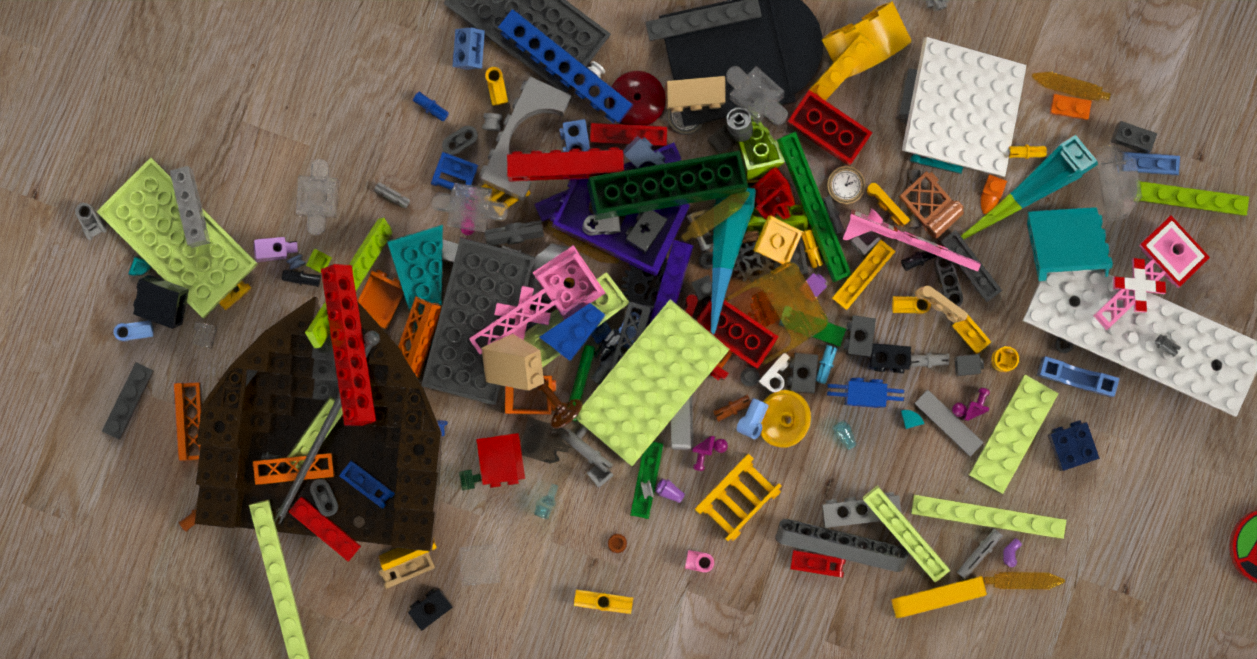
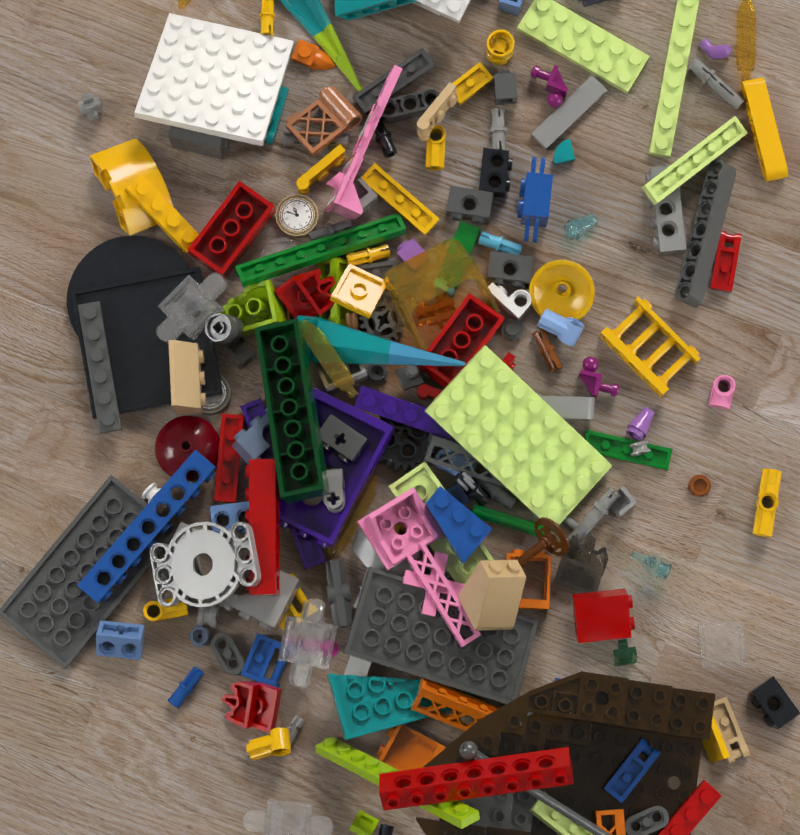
camera: 85 degrees left, 5 degrees down
(383, 182) = (274, 744): none -> yellow piece
(416, 164) = (253, 705): none -> red plate
(474, 111) = (193, 636): none -> sand blue plate
(527, 135) = (227, 567): none -> piece

